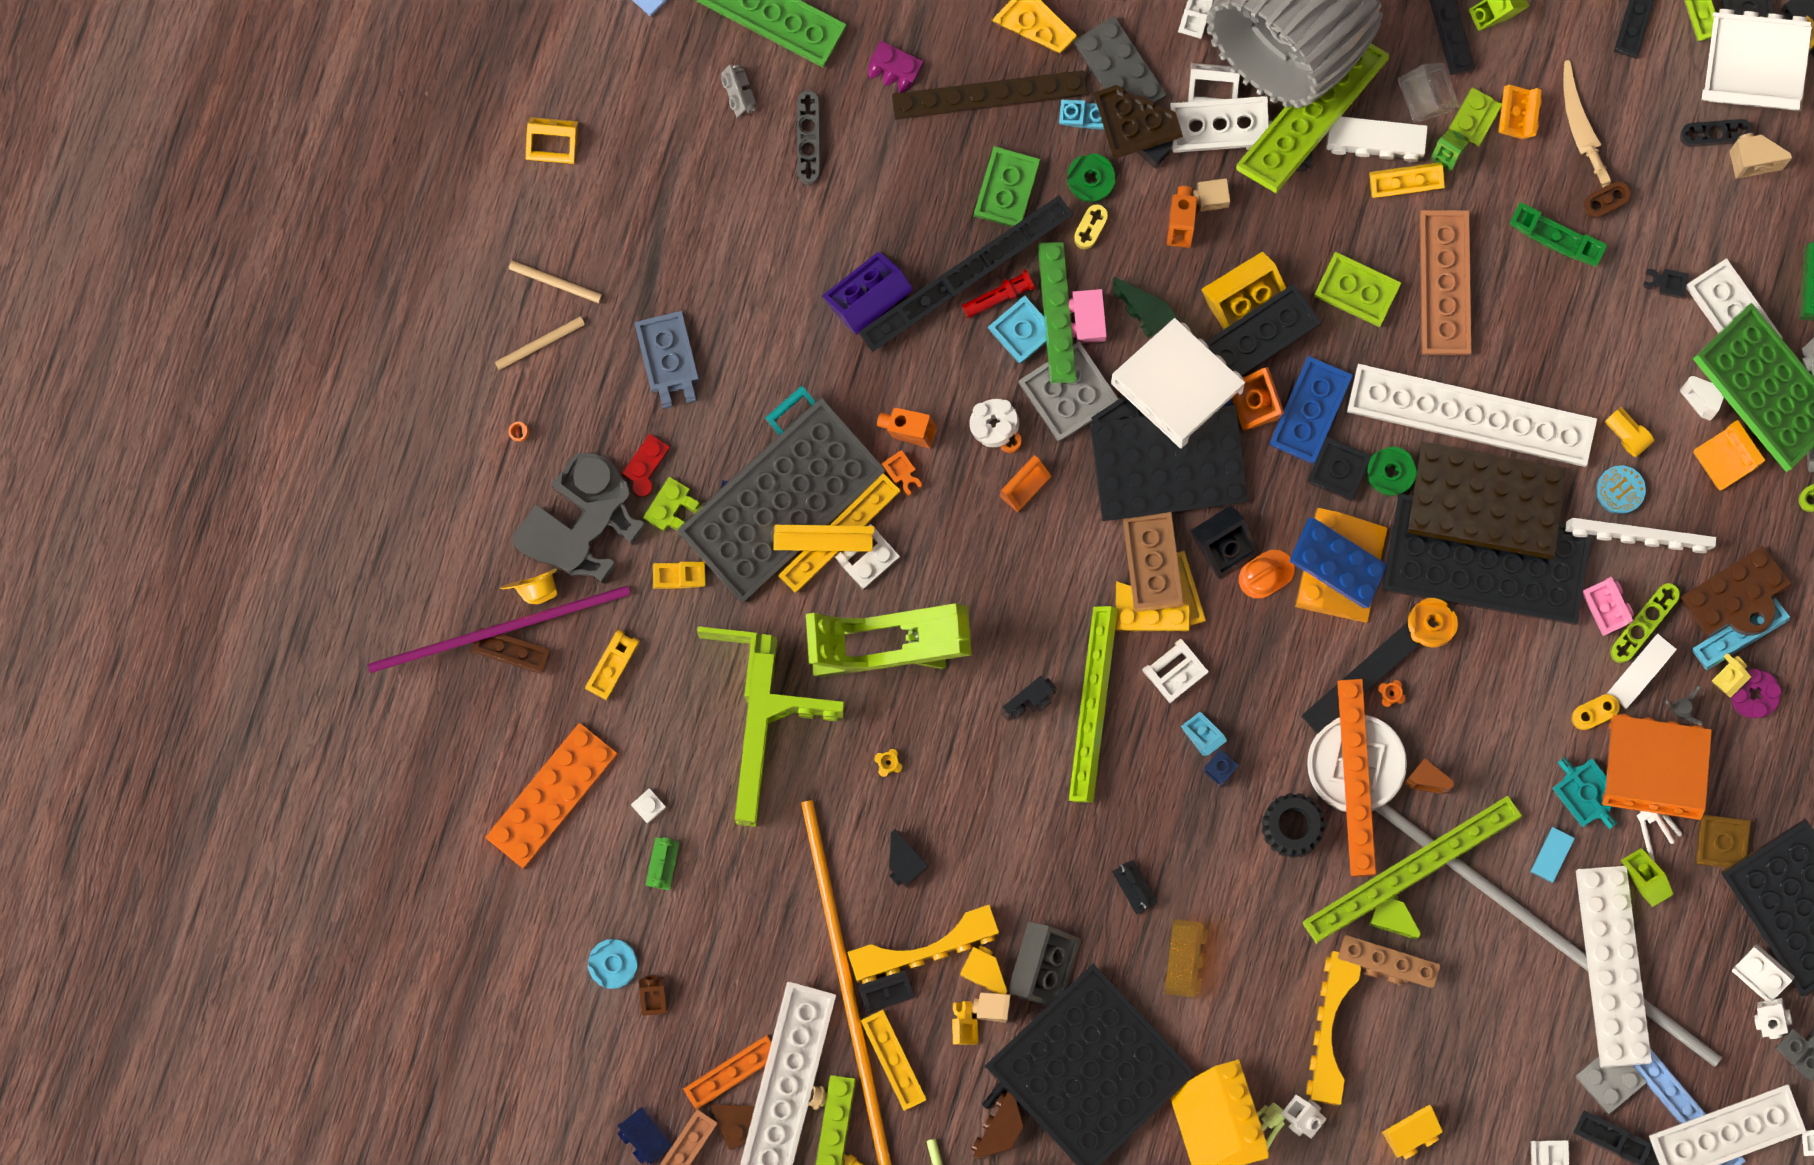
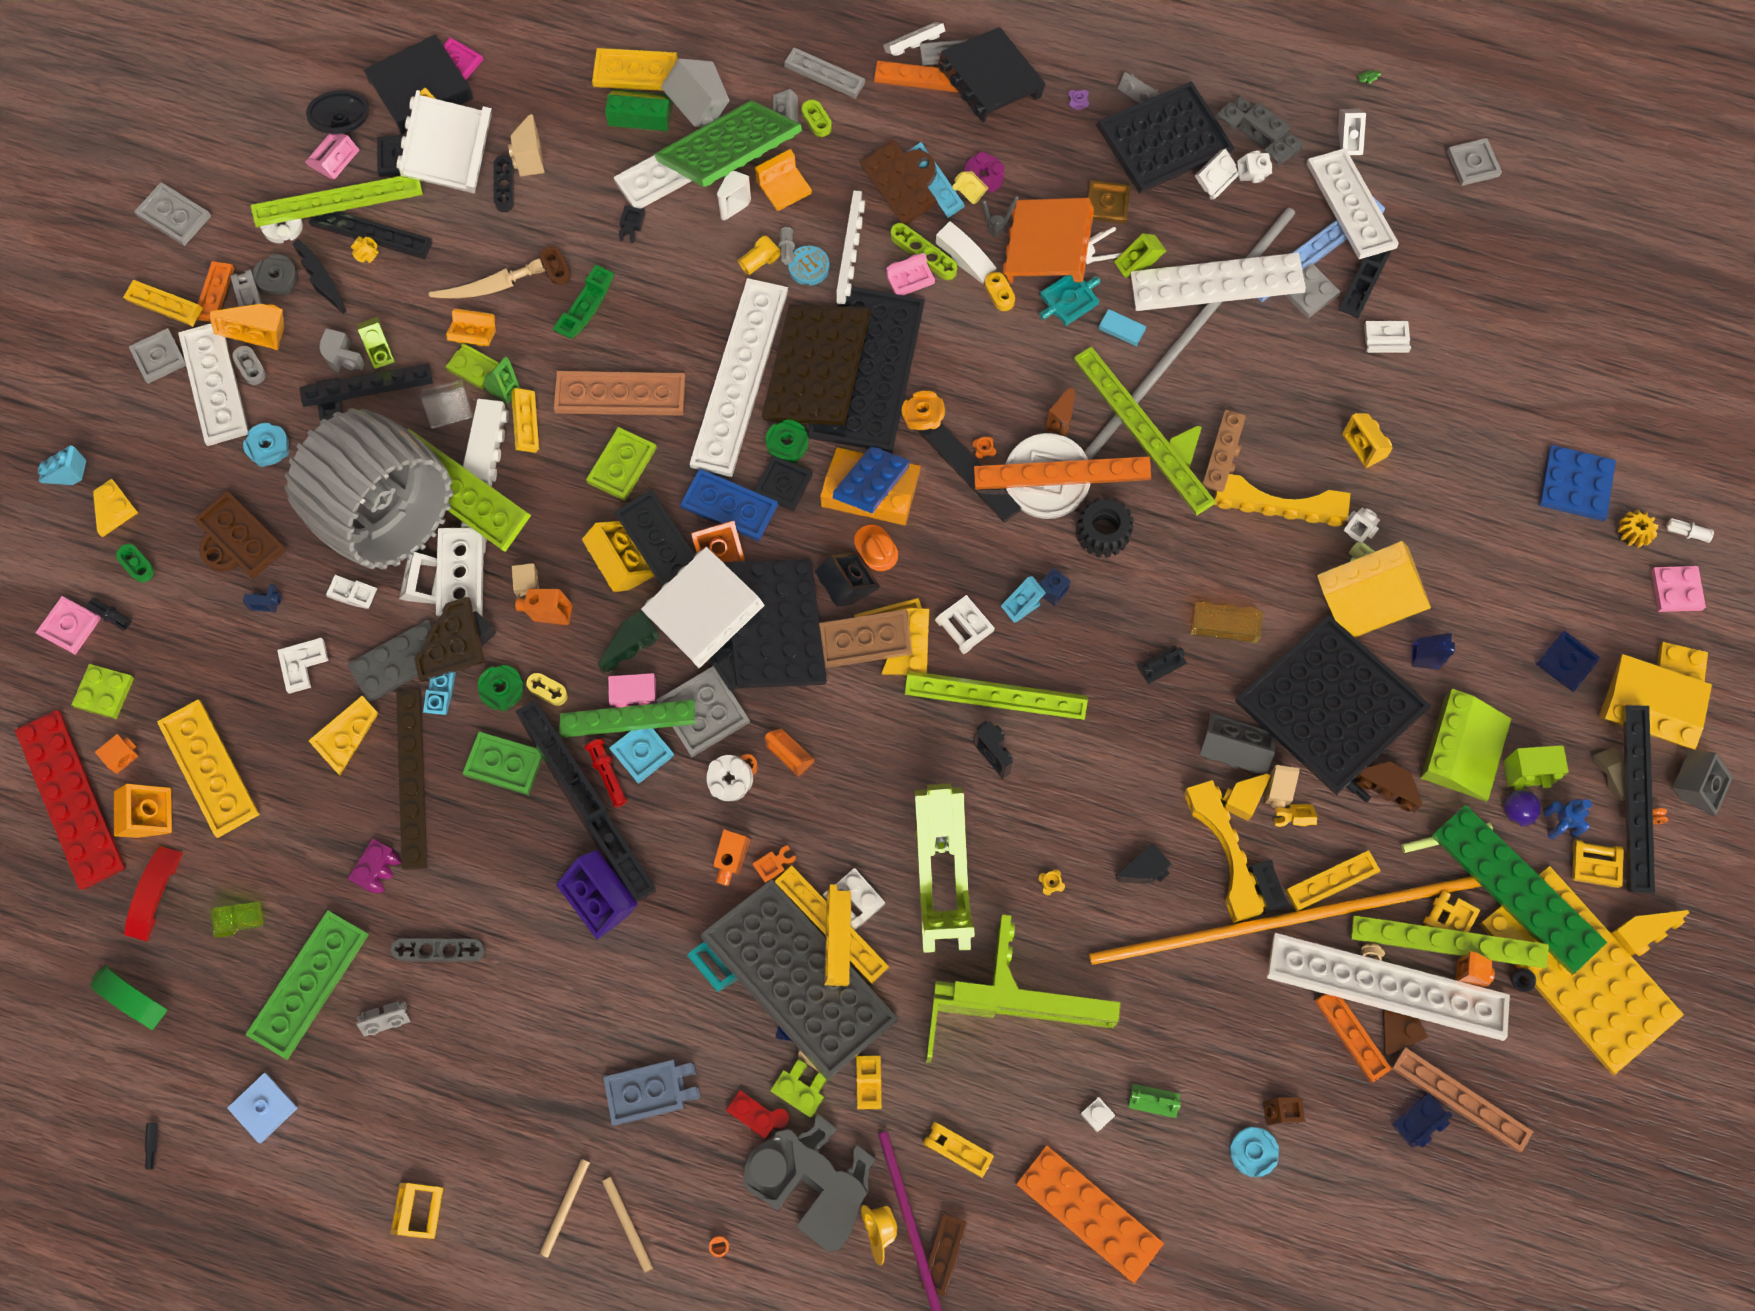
camera: 90 degrees left, 10 degrees down
(1643, 462) = (786, 245): none -> light grey axle

